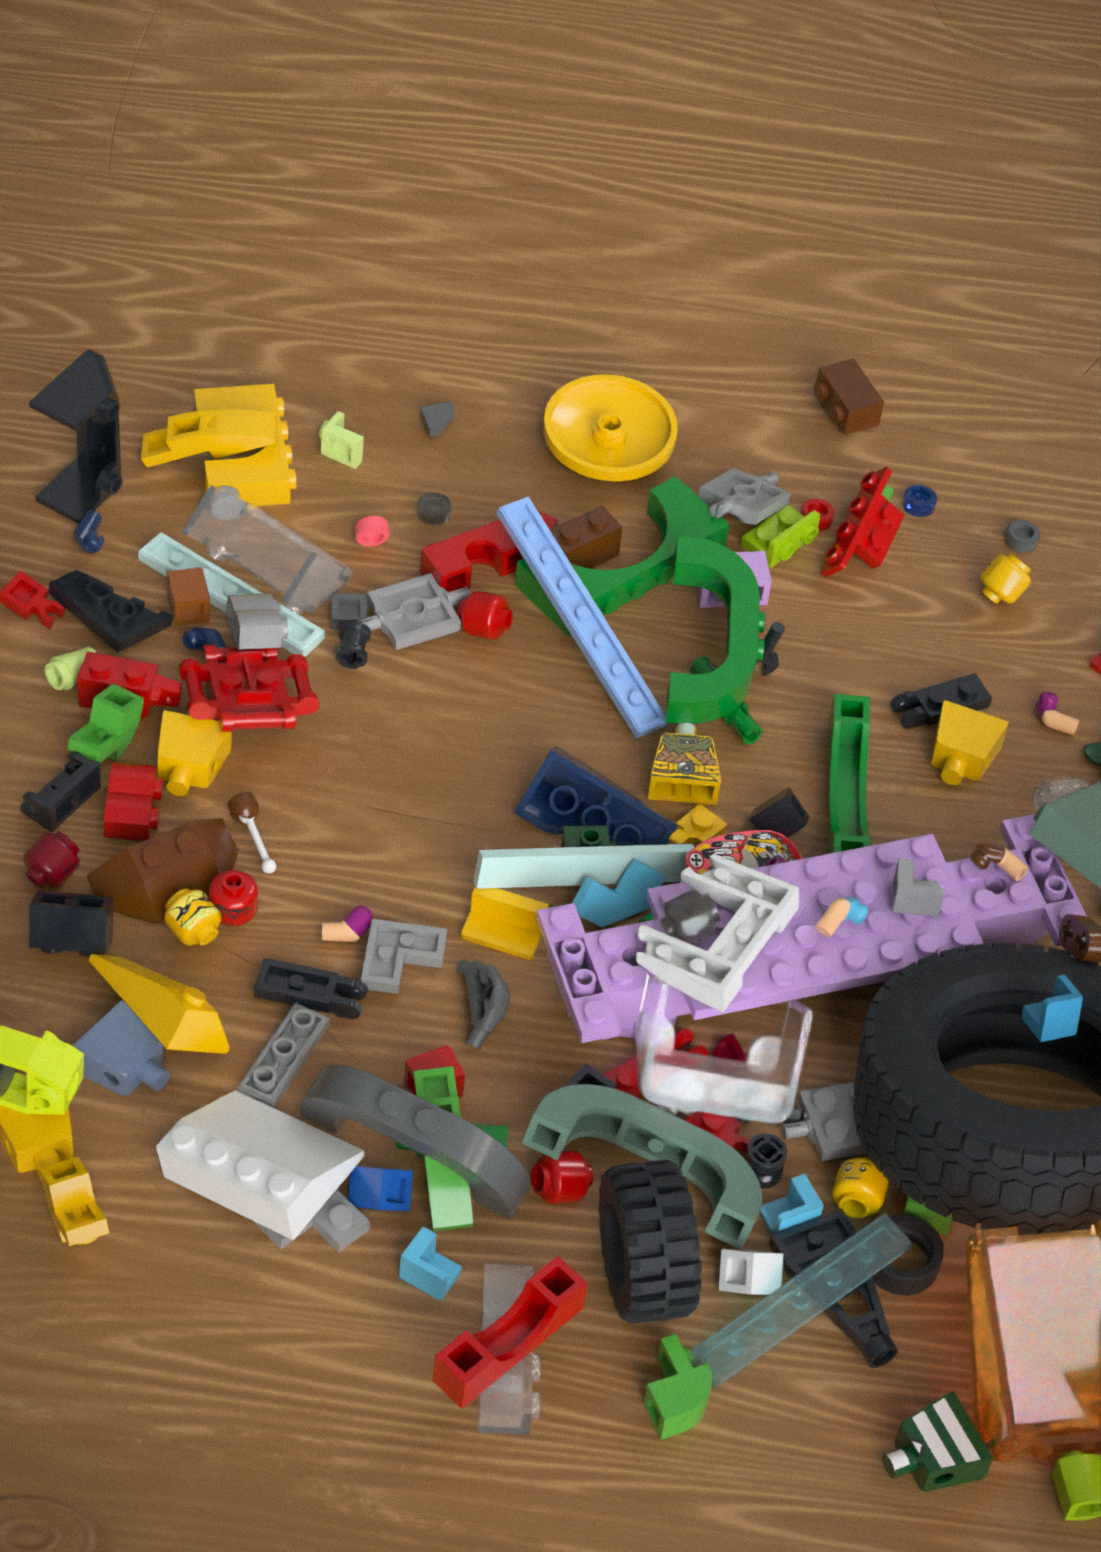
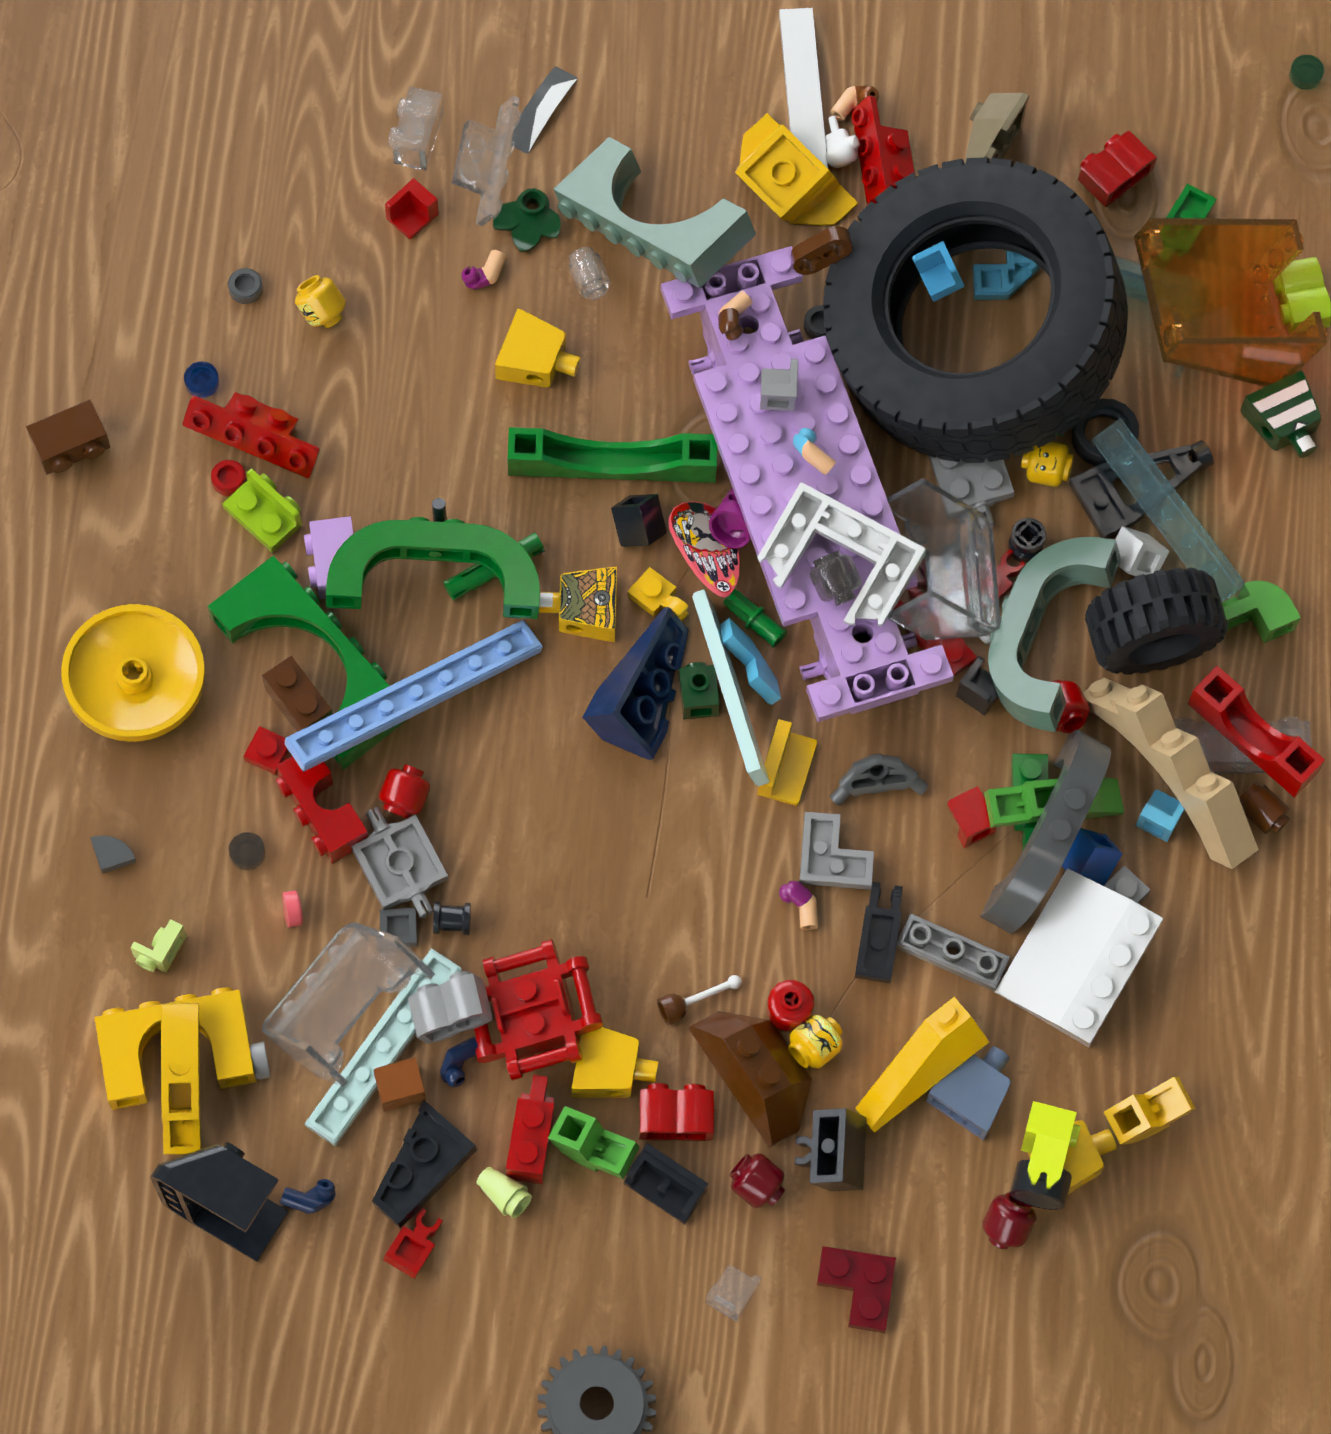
camera: 90 degrees left, 20 degrees up
(418, 1368) = (1264, 808): none -> reddish brown brick
(483, 1247) = (1179, 759): none -> tan arch
(744, 495) = (222, 542): light grey plate -> none
(796, 1208) = (1072, 517): medium azure panel -> none
(928, 702) = (473, 369): black hinge -> none

